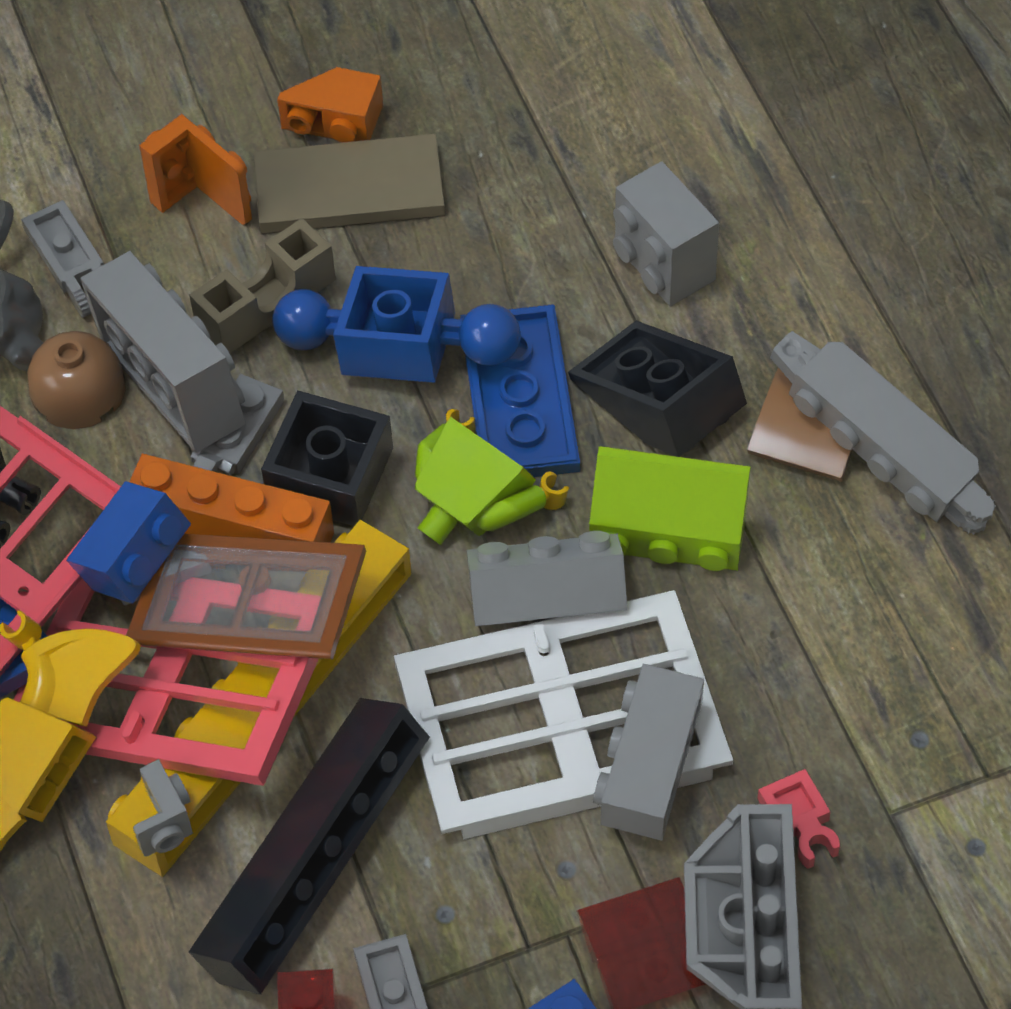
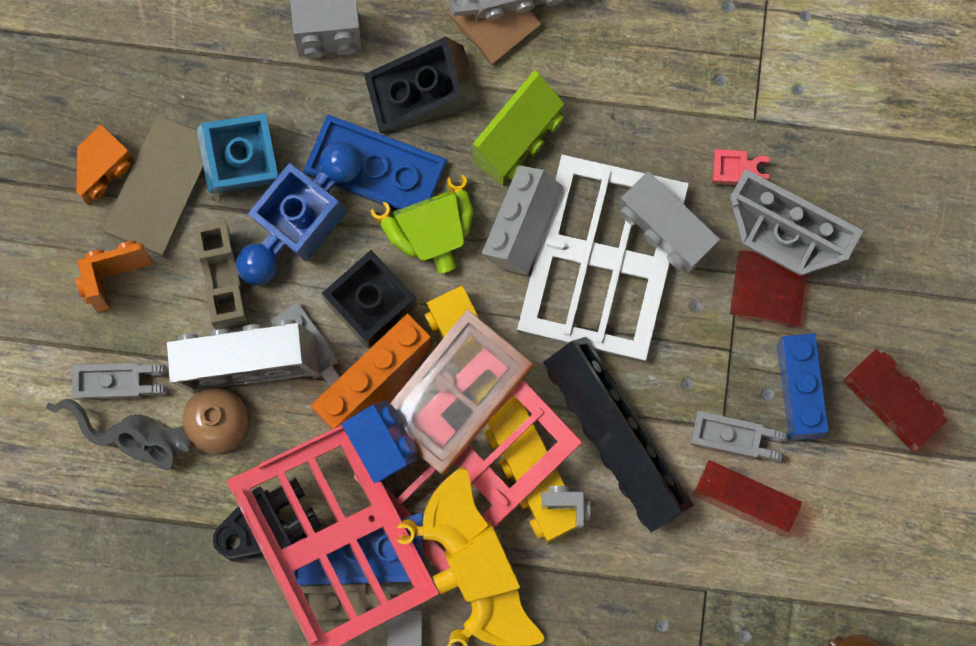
camera: 65 degrees left, 20 degrees up
(432, 221) = (237, 153): none -> dark azure brick

